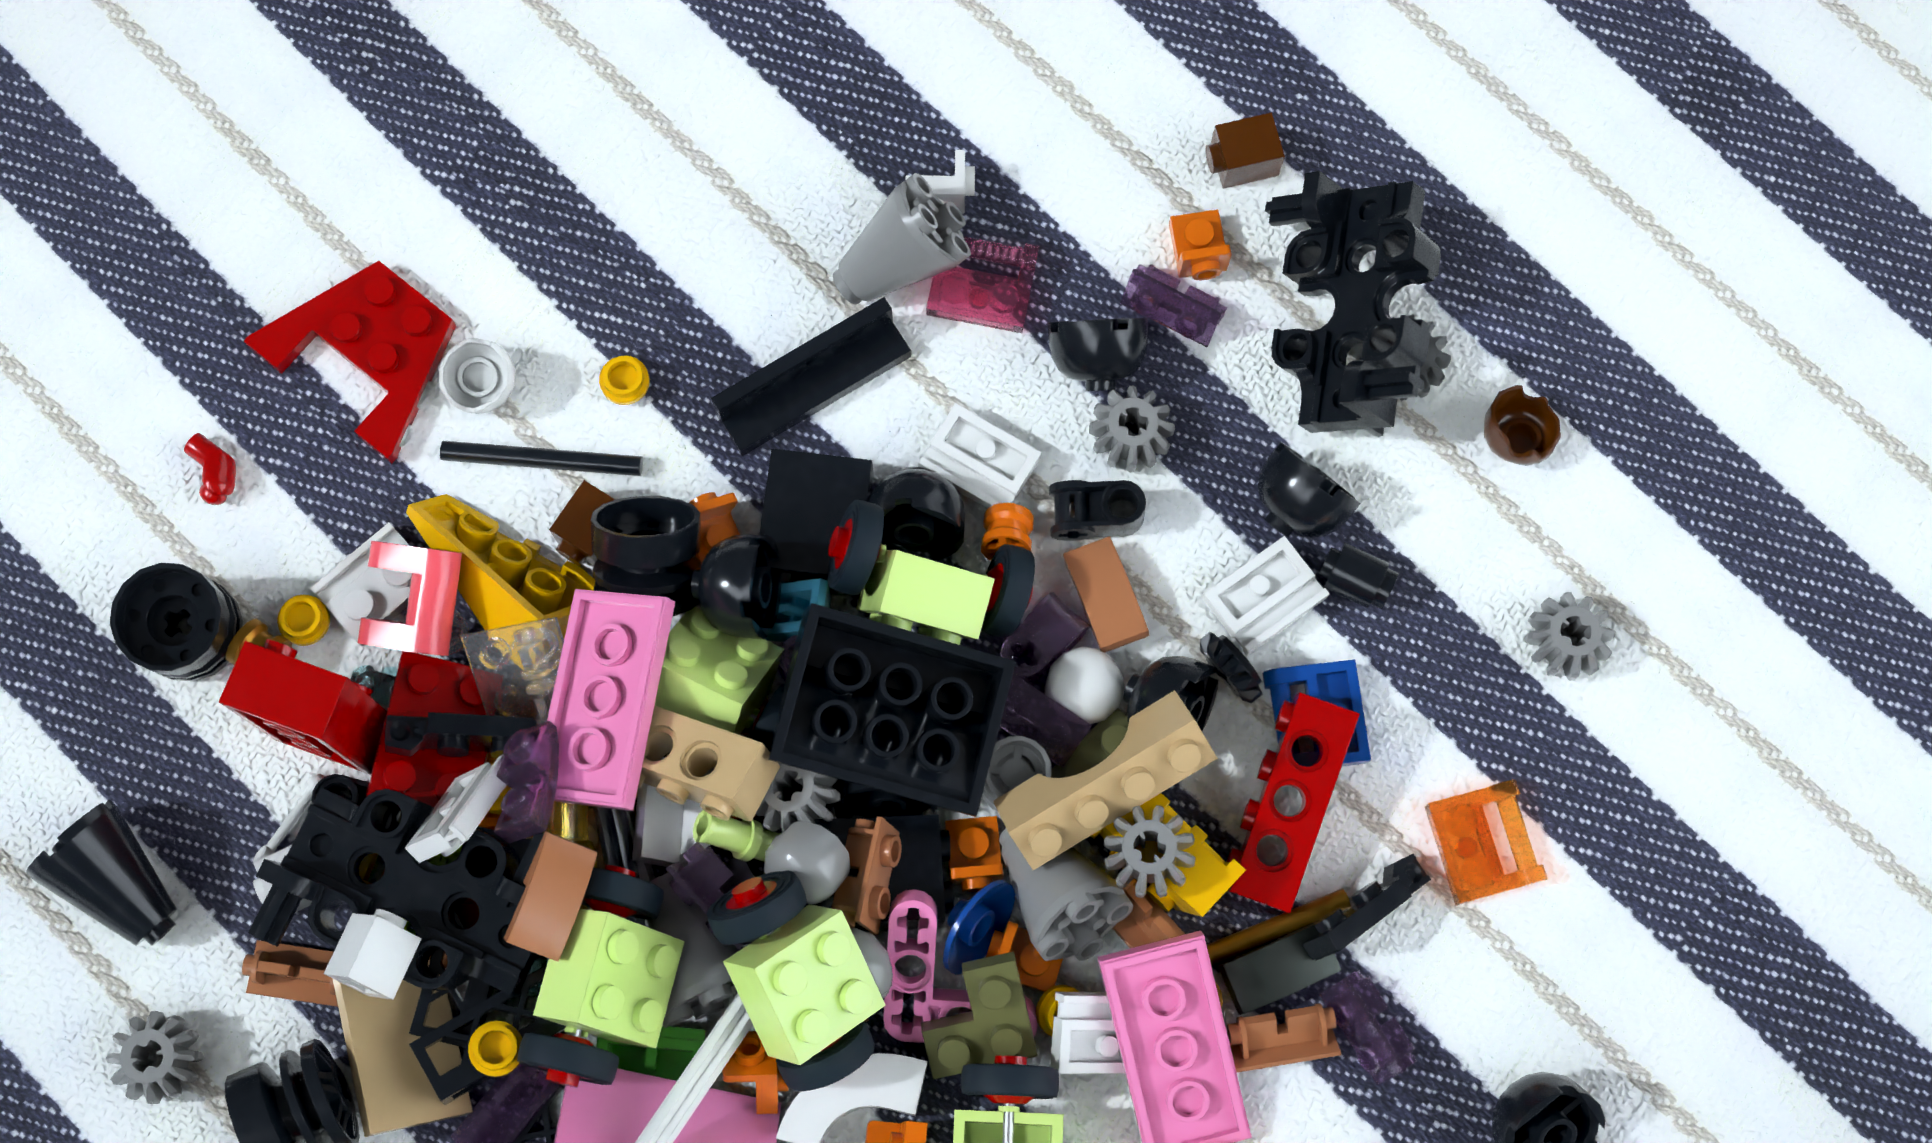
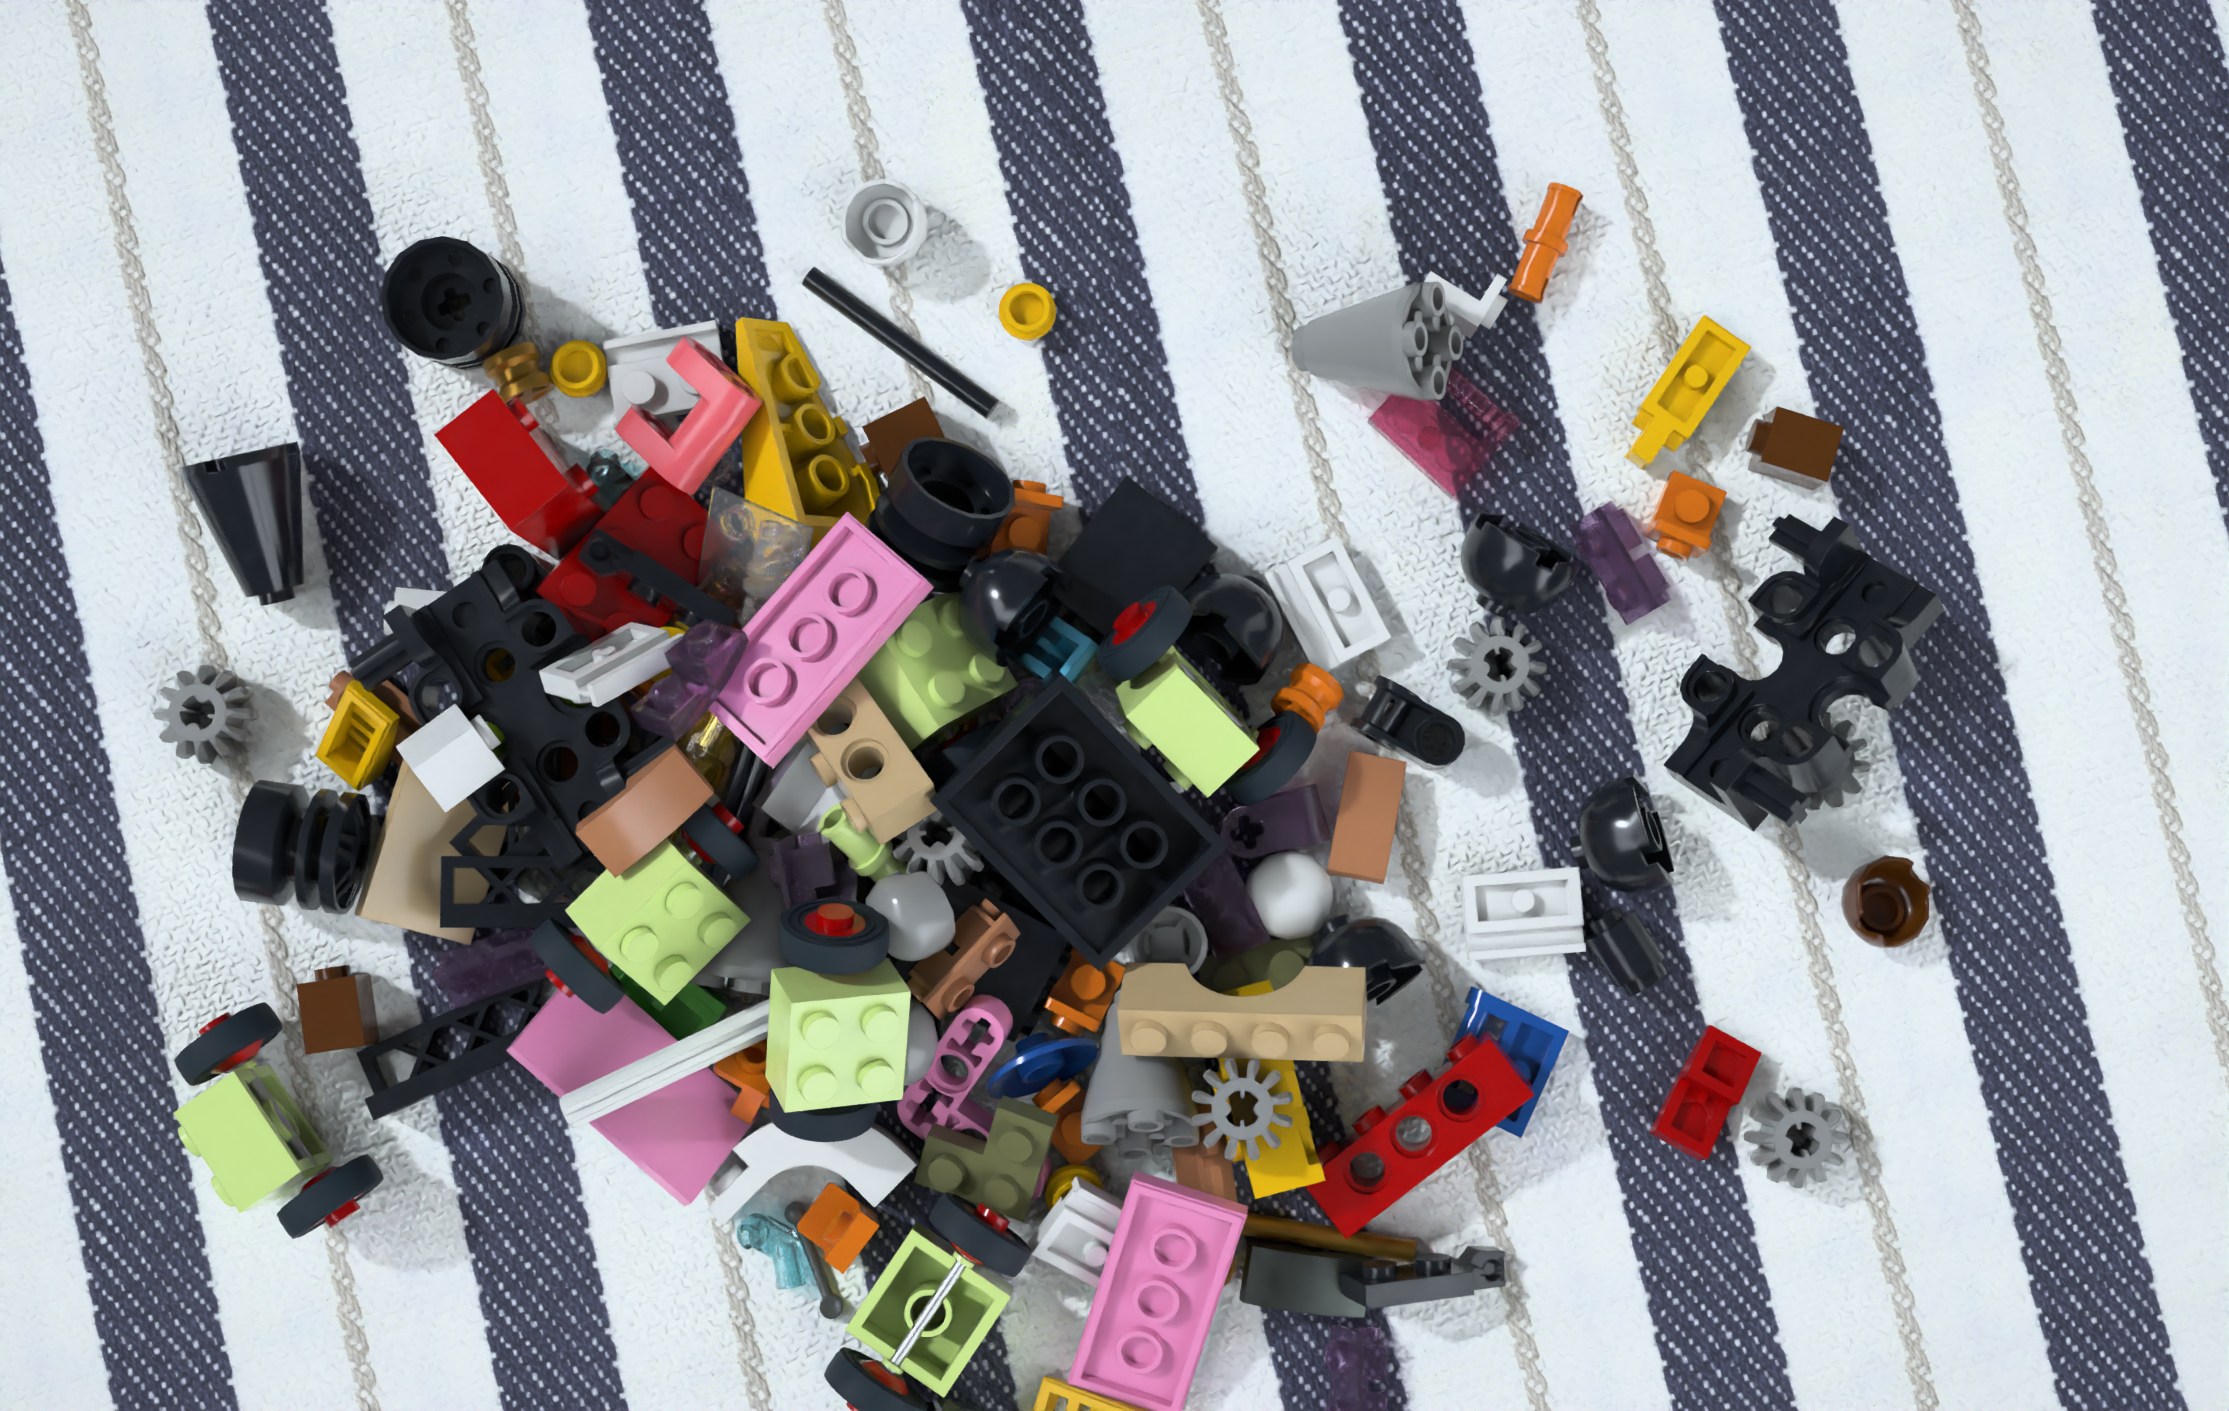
camera: 30 degrees right, 10 degrees up
(218, 469) = (581, 164): red arm -> none
(286, 1020) = (359, 737): none -> yellow slope
(290, 820) = (416, 579): white hinge -> none
(381, 331) = (818, 115): red wing -> none
(495, 1048) = (517, 910): yellow plate -> none
(811, 377) = (1213, 422): black fence -> none
(976, 113) = (1545, 242): none -> orange pin
(1142, 157) = (1686, 390): none -> yellow hinge
(1231, 666) = (1442, 966): black gear -> none
(1263, 1043) = (1256, 1348): nougat hinge -> none
(1469, 848) = (1563, 1276): clear orange plate -> none
(1482, 646) = (1705, 1092): none -> red slope

